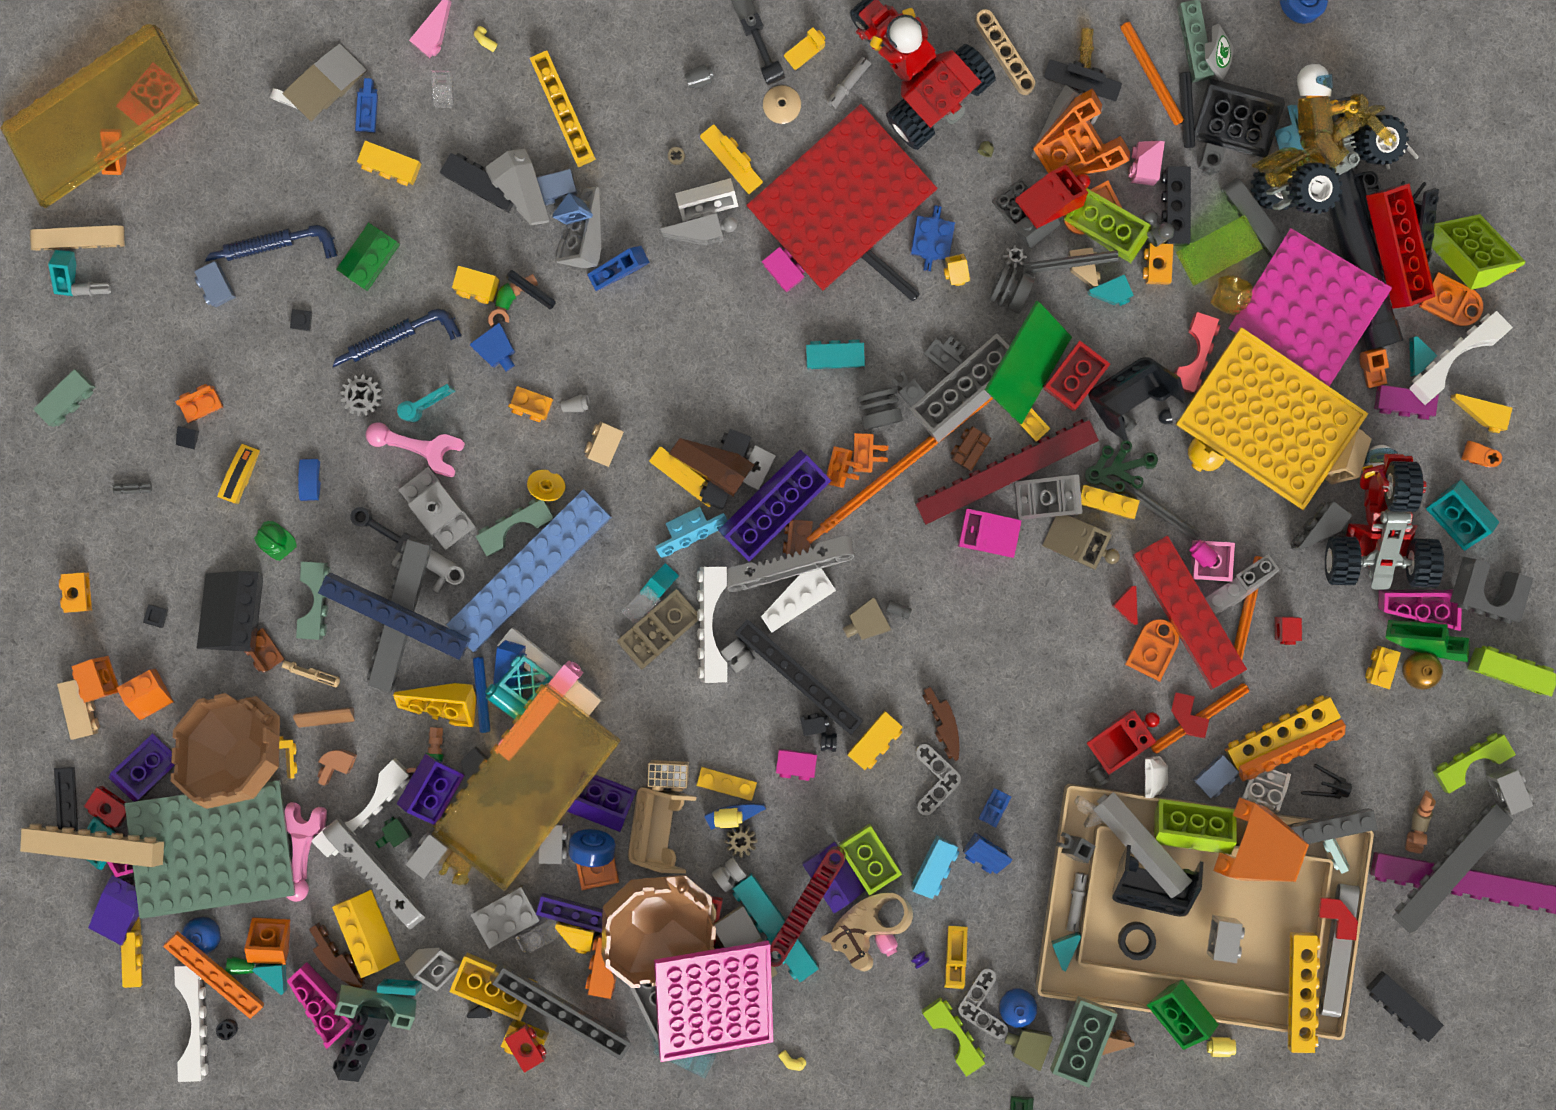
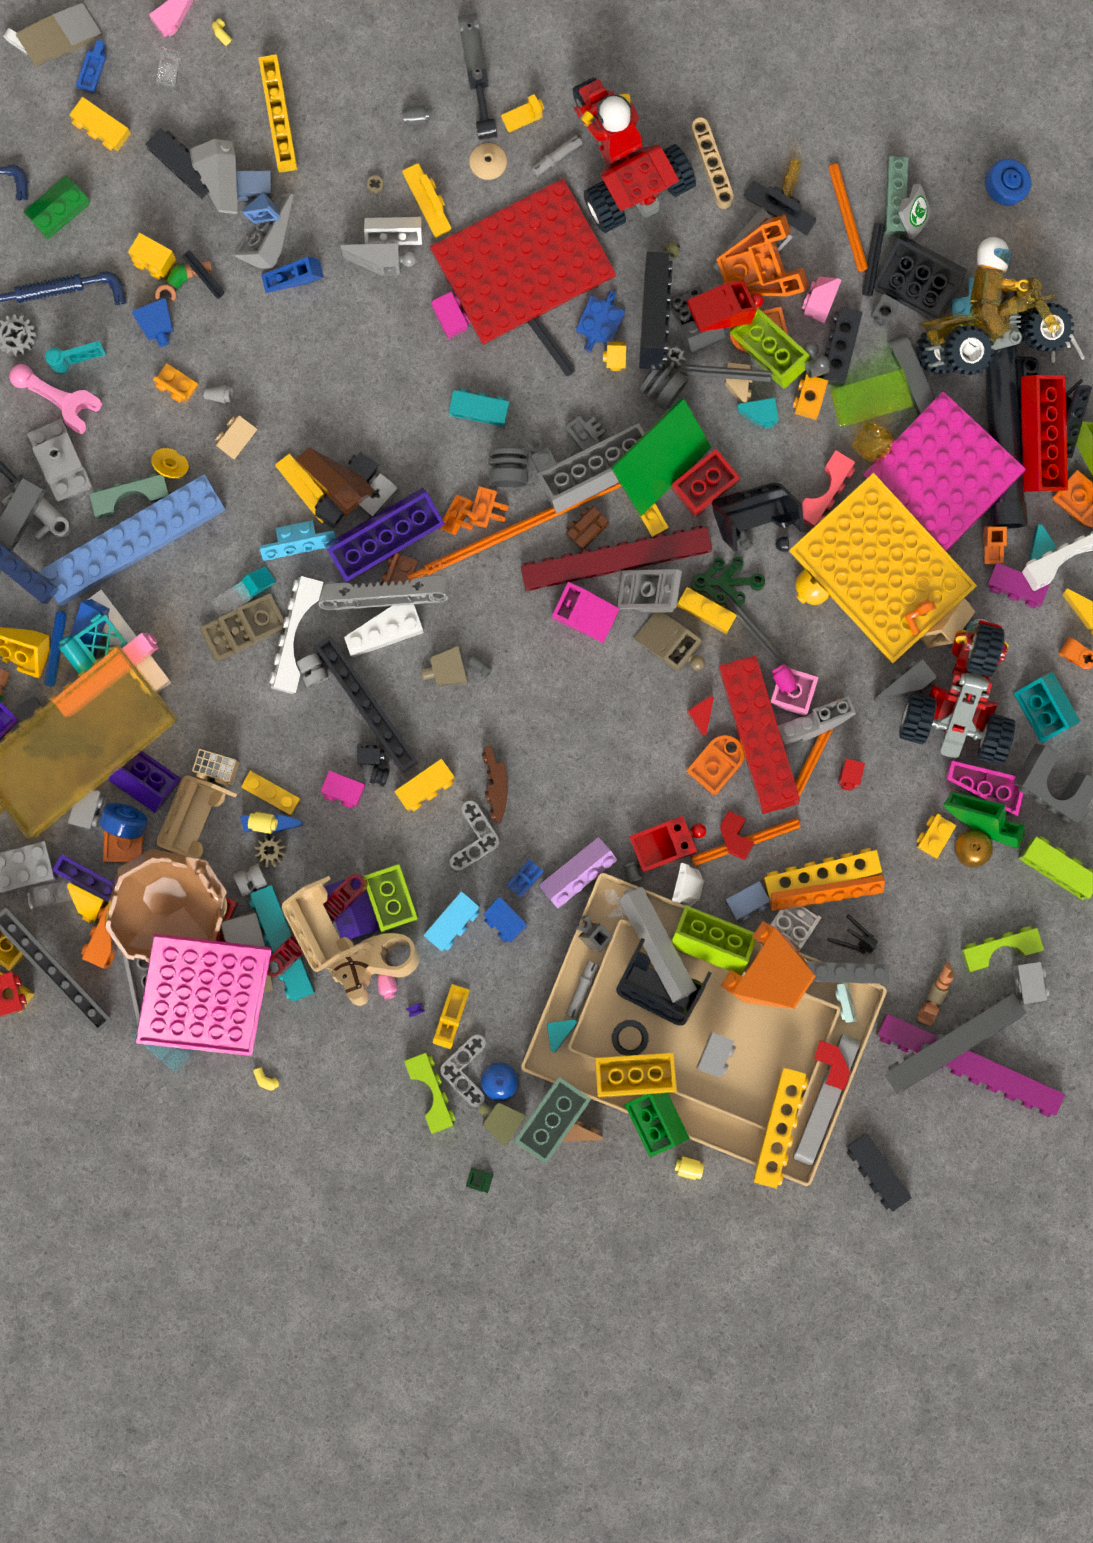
camera: 15 degrees right, 5 degrees down
(809, 915) = (314, 928): none -> tan windscreen
(987, 218) = (655, 311): none -> black brick
(1045, 790) = (578, 872): none -> lavender brick
(1153, 978) = (635, 1074): none -> yellow slope
(1323, 450) = (924, 607): none -> orange plate

